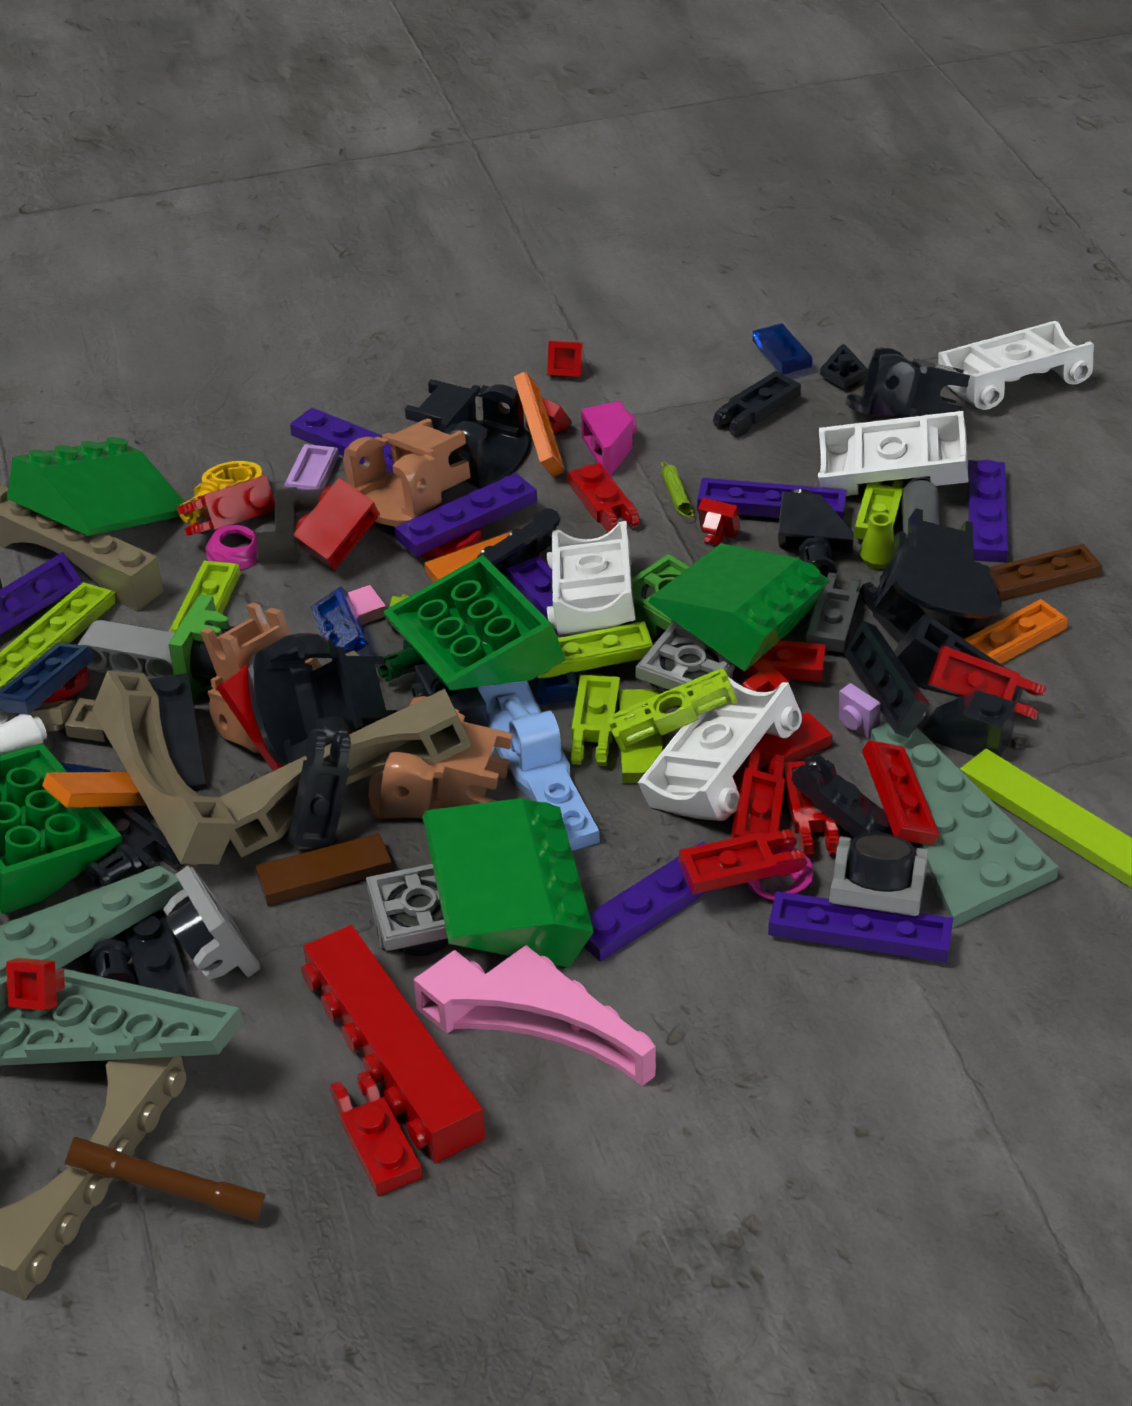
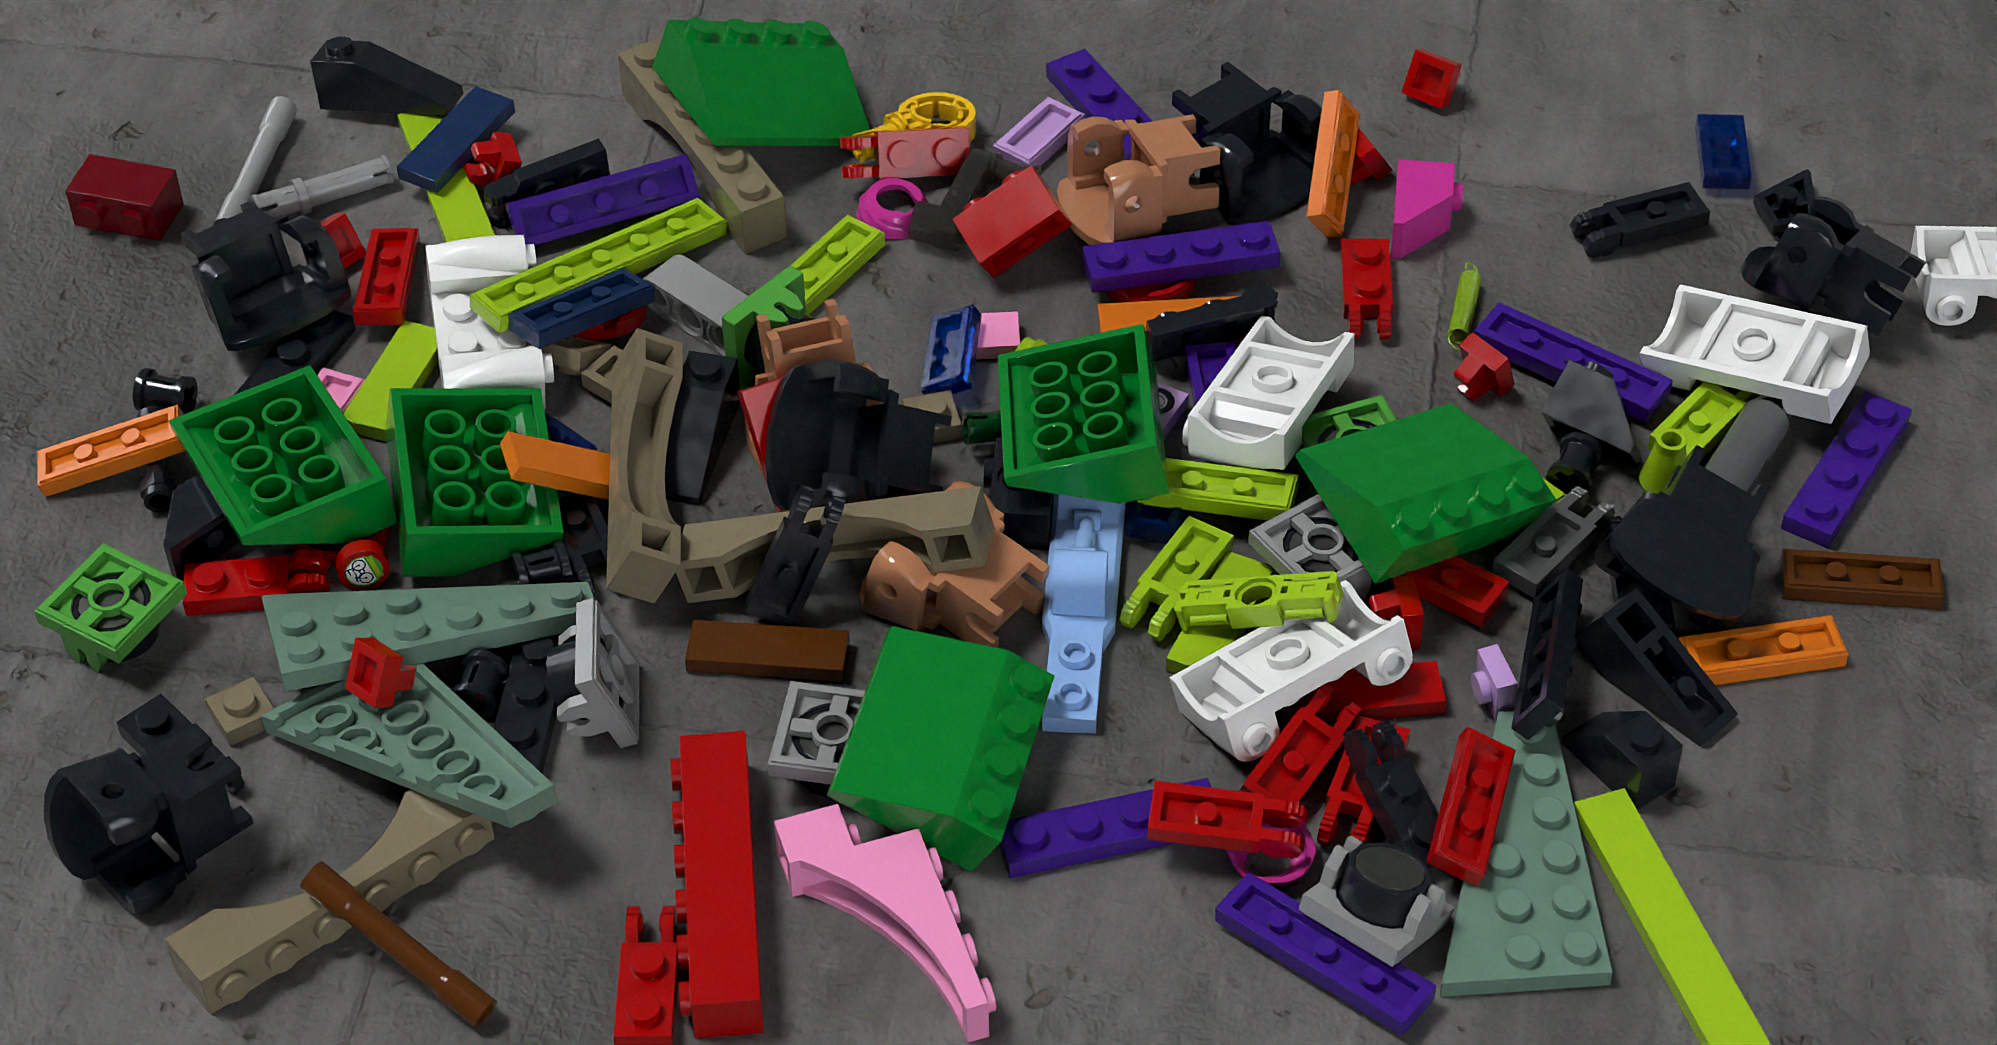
camera: 25 degrees right, 5 degrees up
(964, 674) = (1649, 686): red hinge -> none

